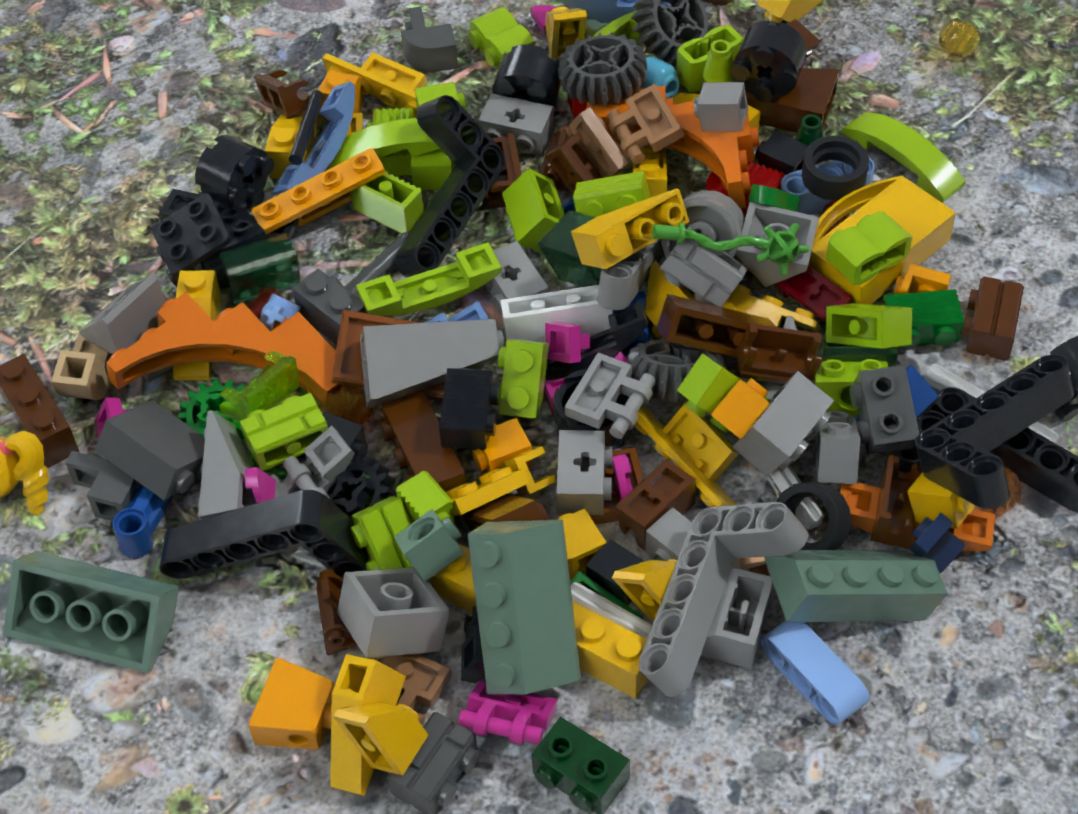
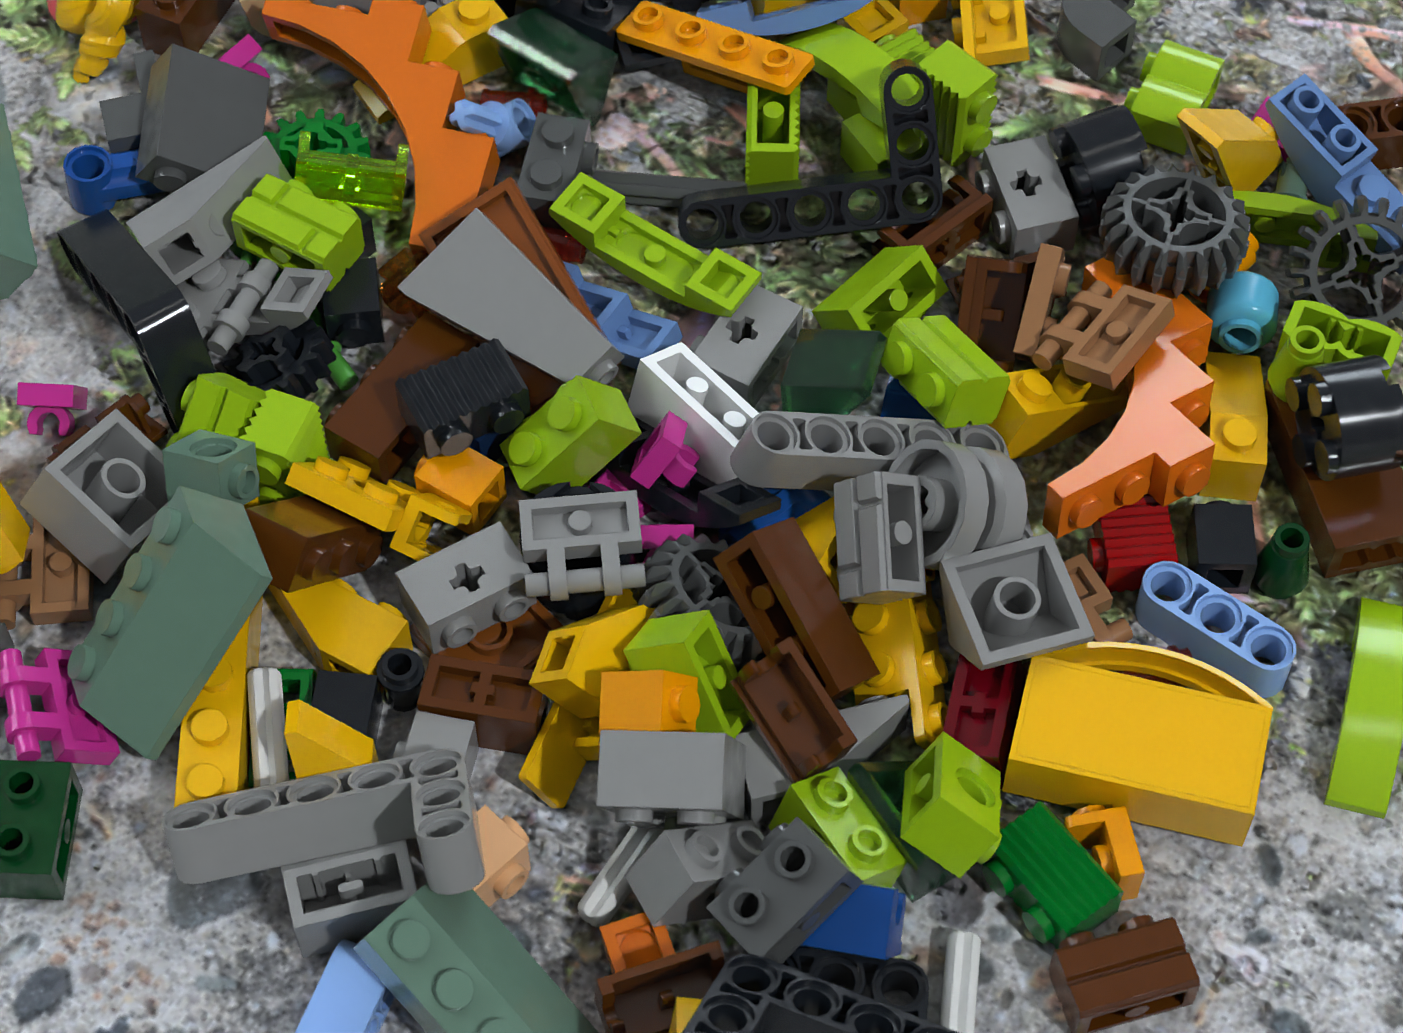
camera: 55 degrees right, 5 degrees up
(261, 484) = (196, 260): dark pink tile -> none
(280, 624) = (51, 399): none -> dark pink tile
(614, 527) = (400, 674): none -> black pin
(621, 478) = (490, 638): dark pink tile -> none
(627, 230) = (849, 406): yellow slope -> none
(677, 430) = (579, 652): none -> yellow slope
(721, 106) = (1186, 402): light grey brick -> none
(773, 197) = (1097, 565): green beam -> none
(780, 246) = (969, 606): bright green piece -> none
(837, 149) = (1235, 576): black tyre -> none
(837, 508) = (586, 914): black tyre -> none
(868, 247) = (1071, 724): lime brick -> none

